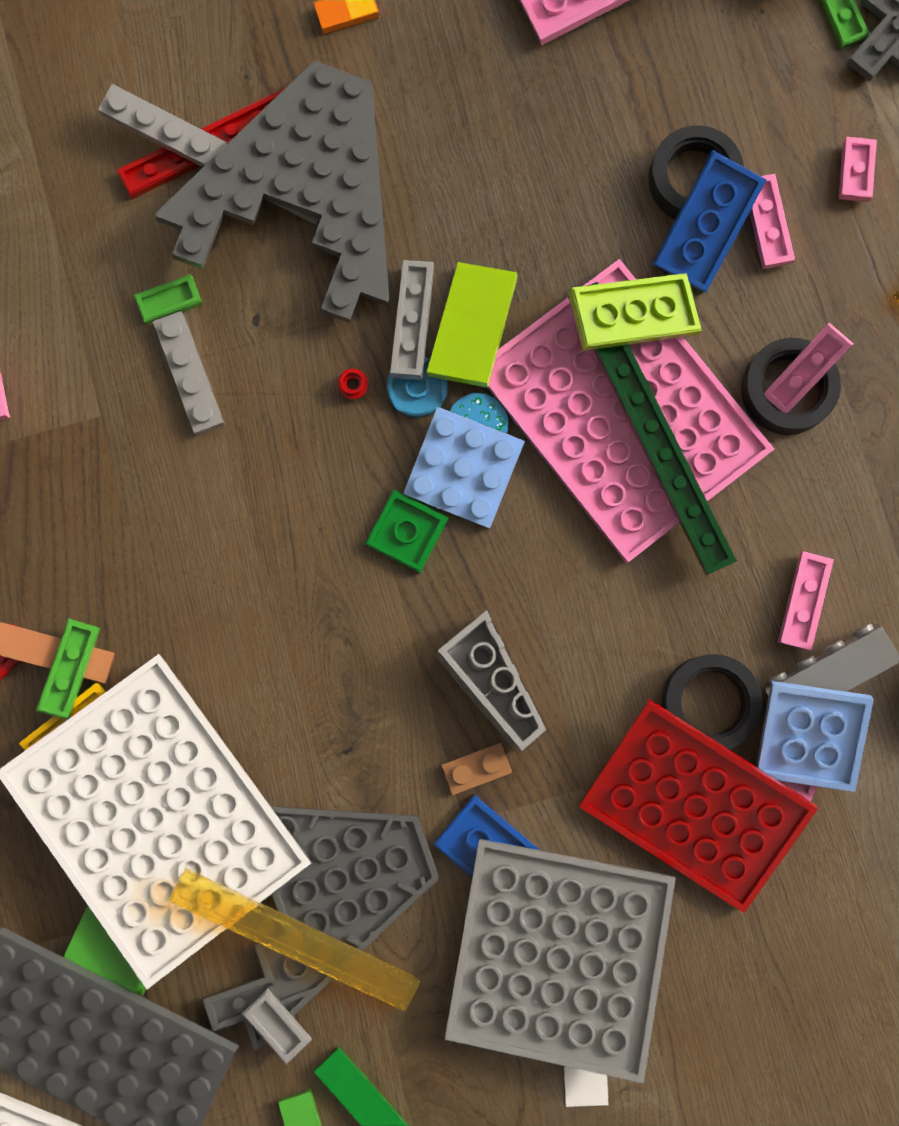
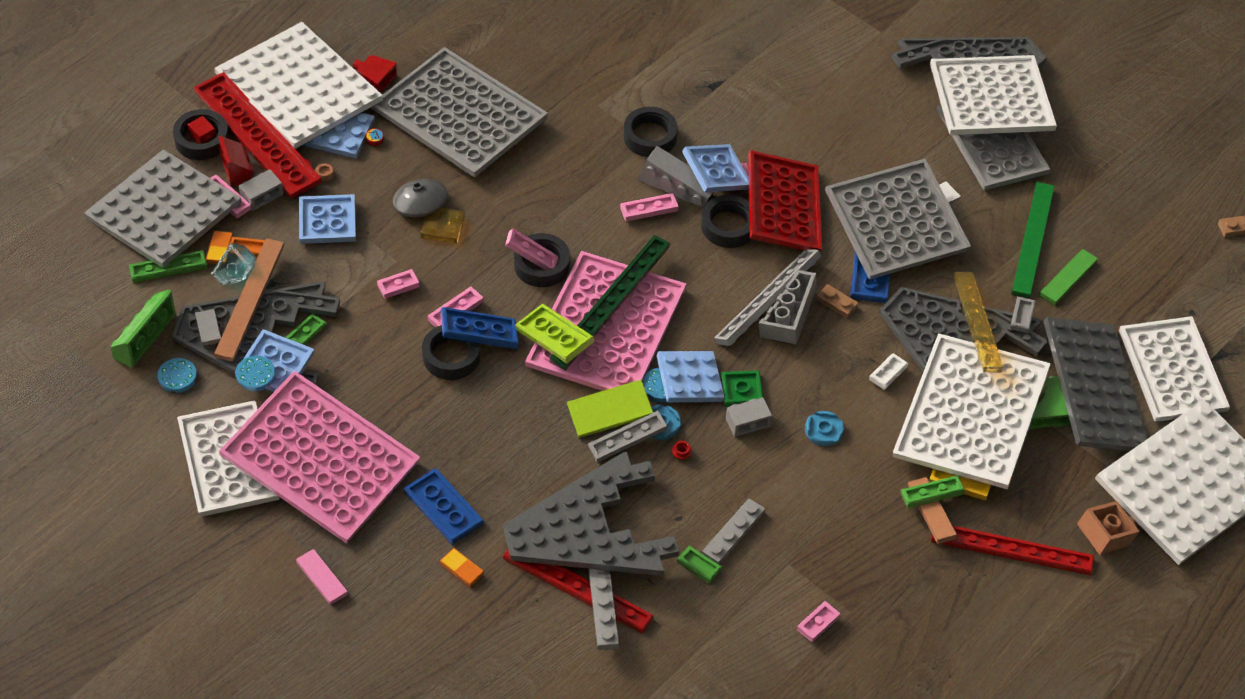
camera: 125 degrees left, 30 degrees down
(273, 601) = (824, 428): none -> dark azure tile
(307, 755) = (888, 371): none -> white plate
(349, 503) = (748, 416): none -> light grey brick
(453, 38) = (443, 506): none -> blue tile
(538, 668) = (765, 299): none -> light grey plate

